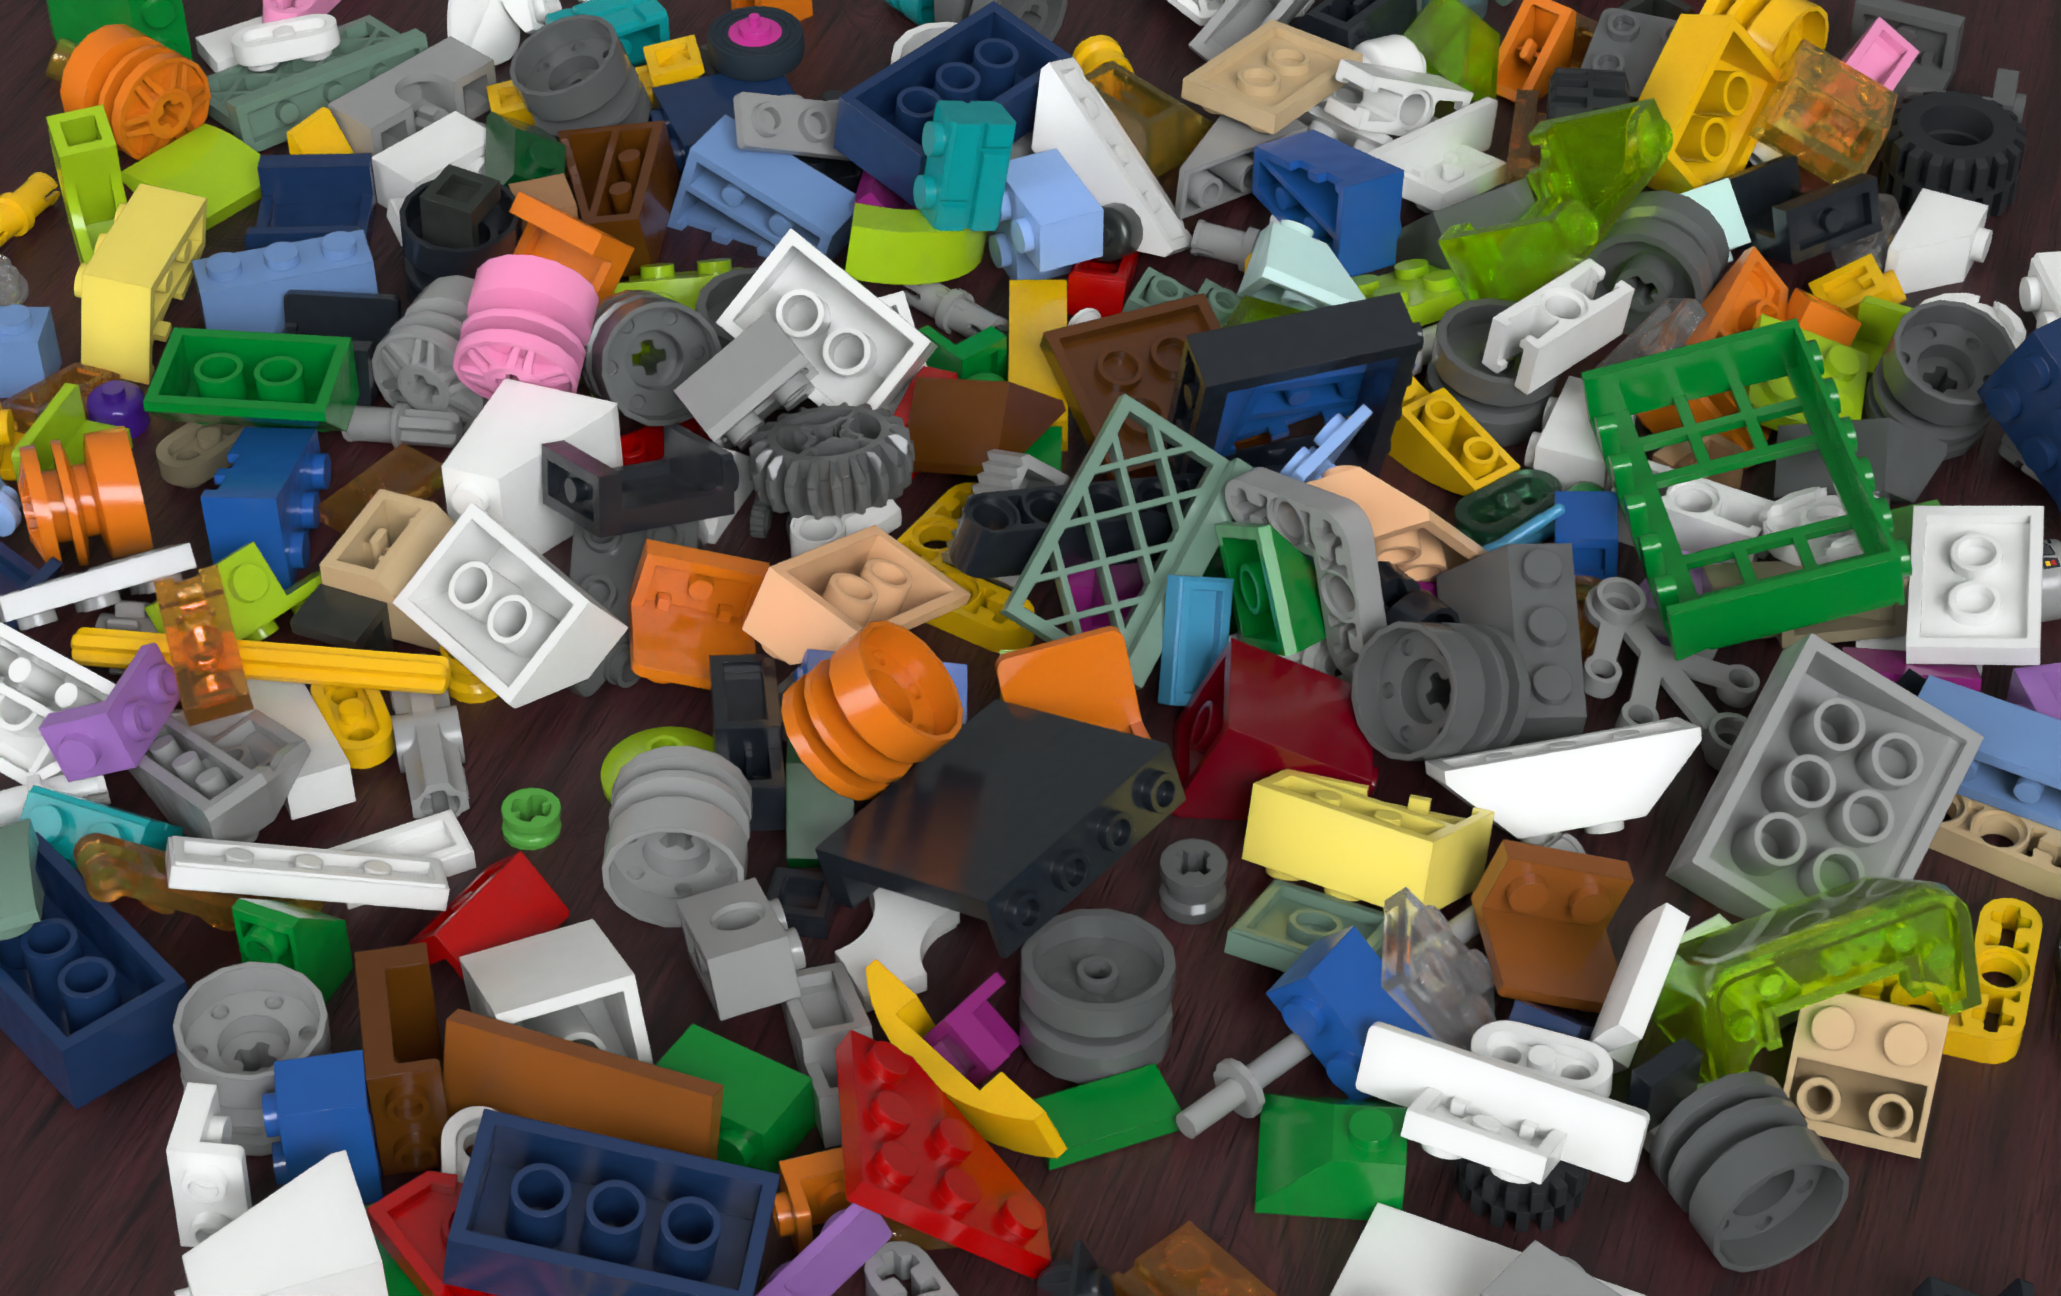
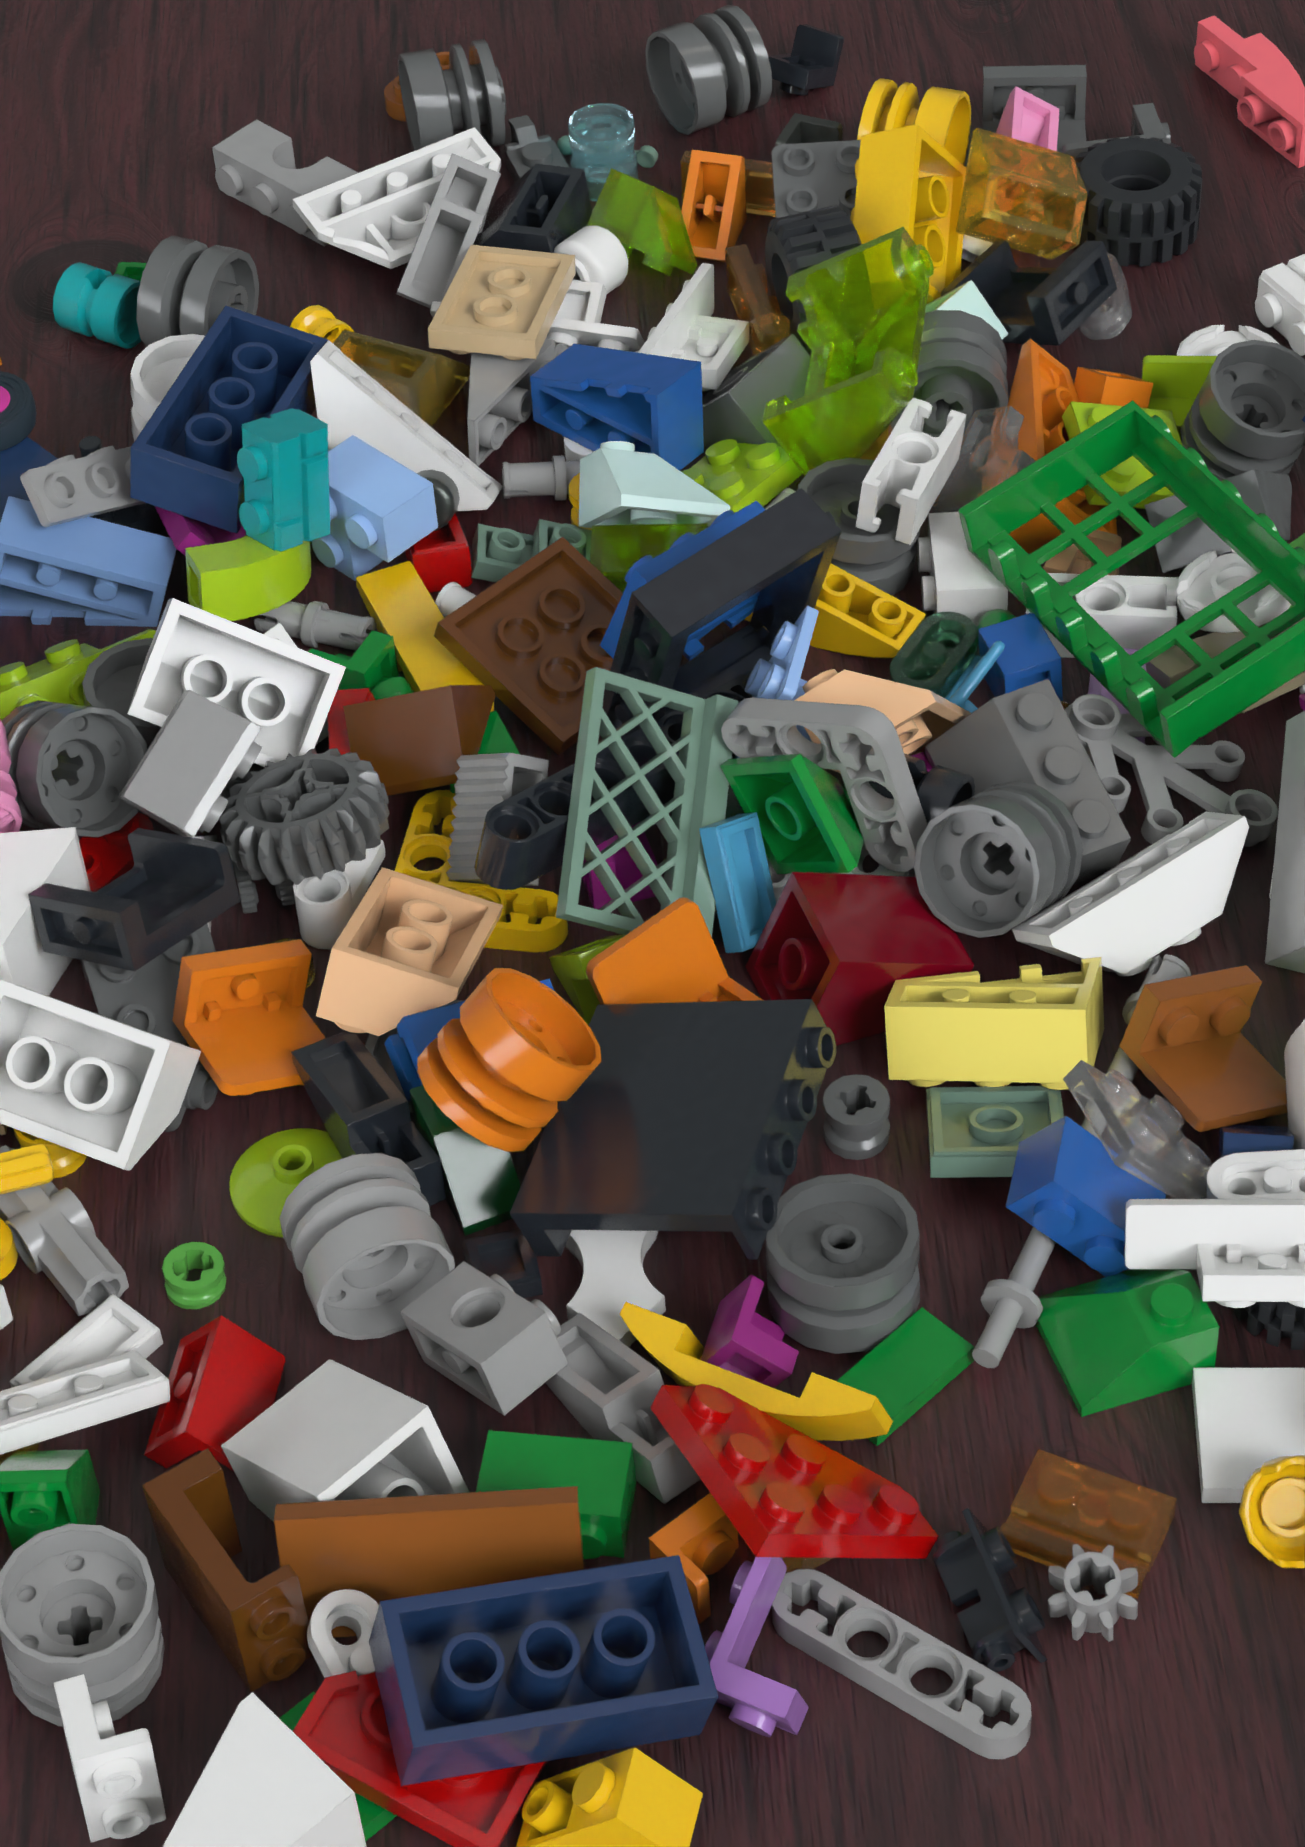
camera: 20 degrees left, 5 degrees up
(322, 1110) = (191, 1671): blue brick -> none
(1393, 98) = (623, 291): white piece -> none
(1856, 280) = (1122, 347): yellow bracket -> none
(1938, 241) = (1164, 285): white slope -> none

